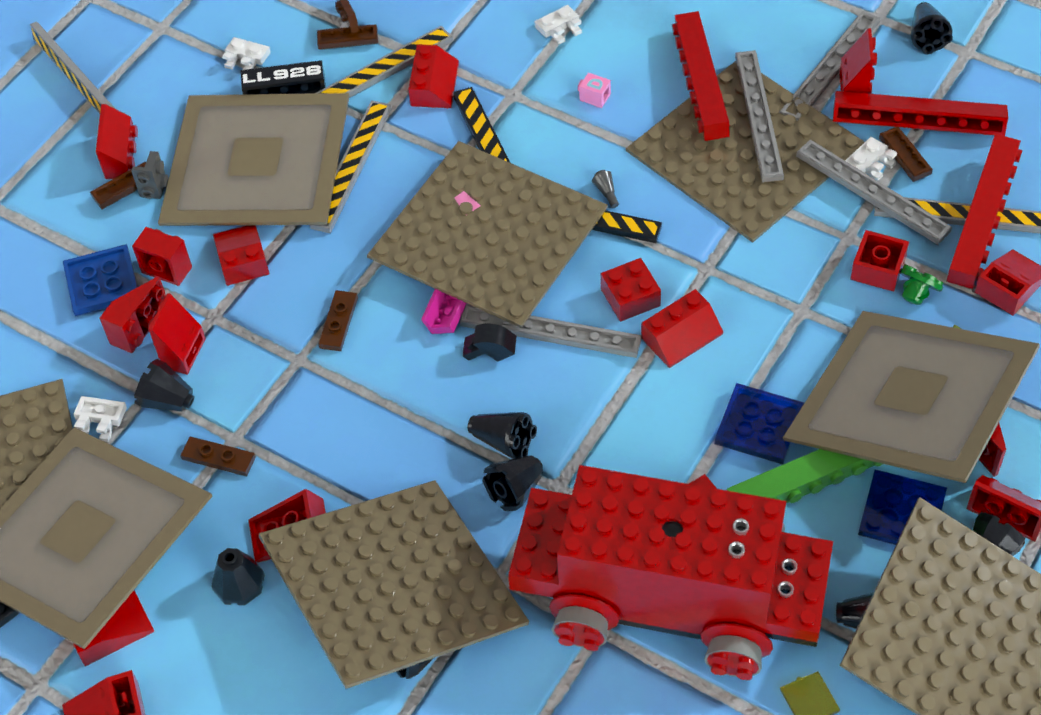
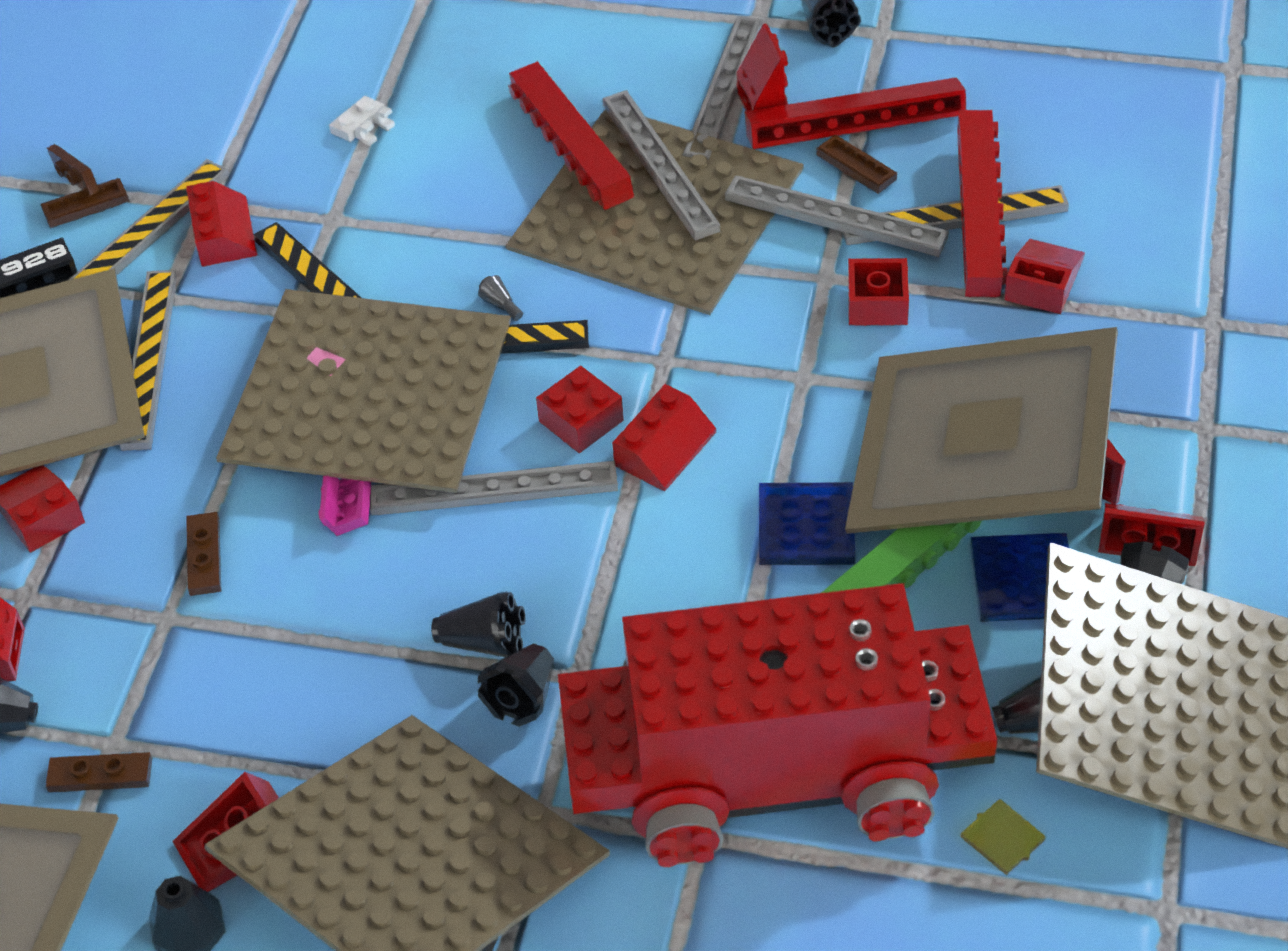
camera: 20 degrees left, 5 degrees down
(490, 339) = (421, 517): black brick -> none
(594, 90) = (439, 186): bright pink brick -> none
(869, 154) = (819, 177): white plate -> none
(918, 285) = (936, 306): green plate -> none

